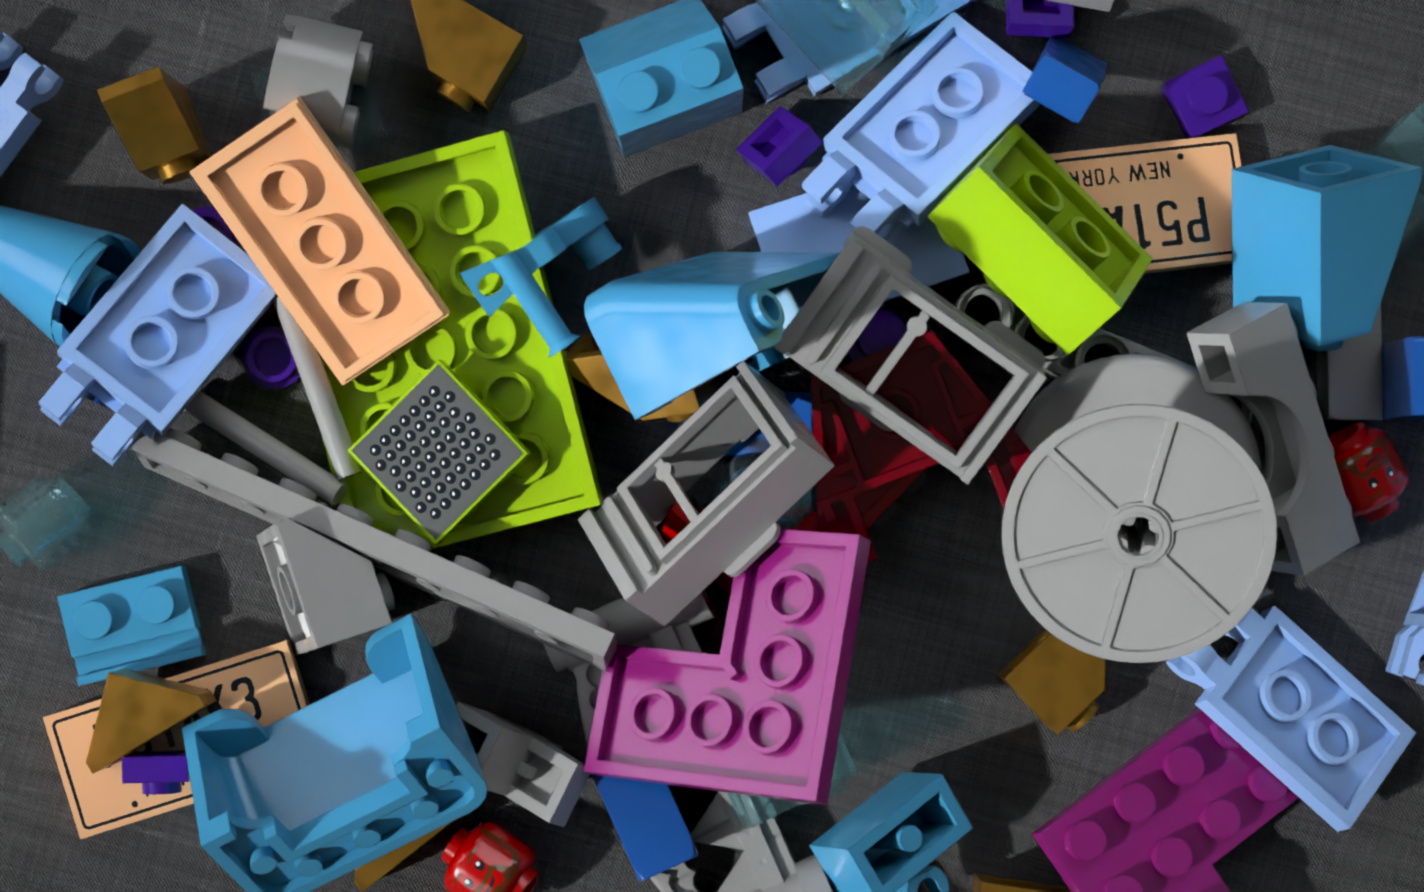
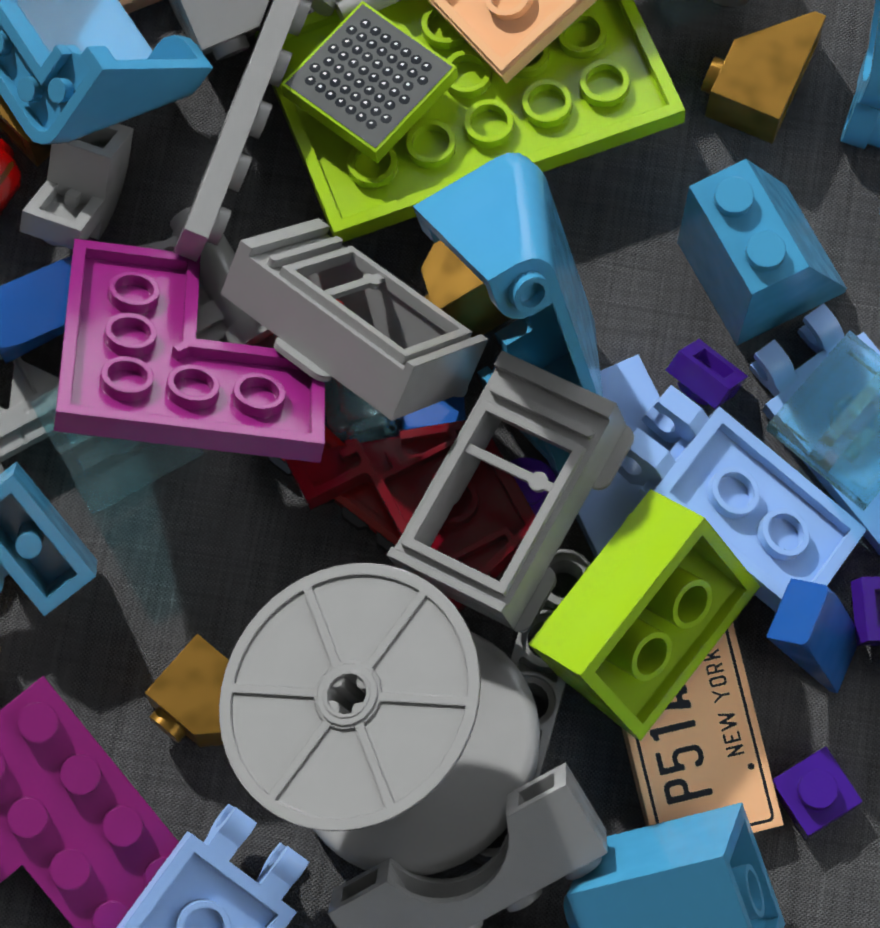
camera: 85 degrees right, 15 degrees down
(582, 229) = (598, 185): dark azure piece -> none

